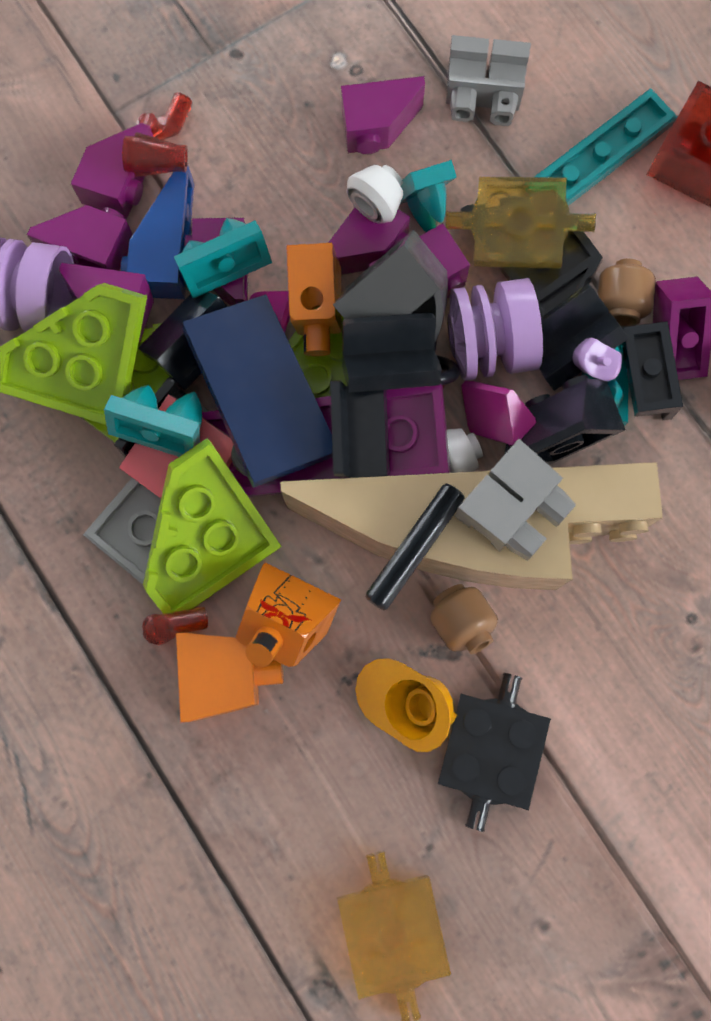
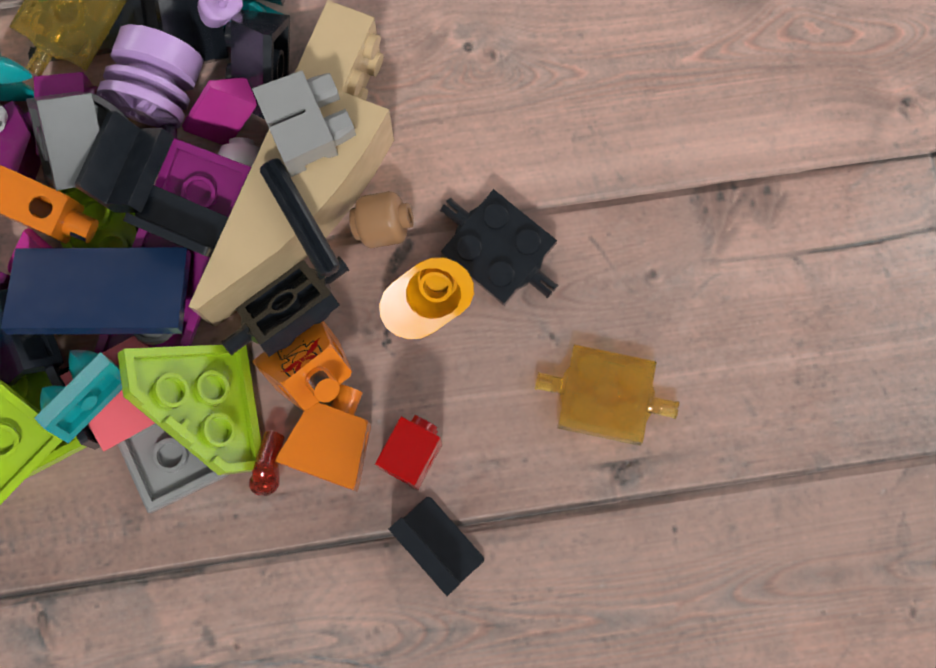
camera: 70 degrees left, 0 degrees up
(166, 828) = (437, 545): none -> black panel
(239, 763) = (410, 451): none -> red brick
(326, 569) = (285, 309): none -> black plate

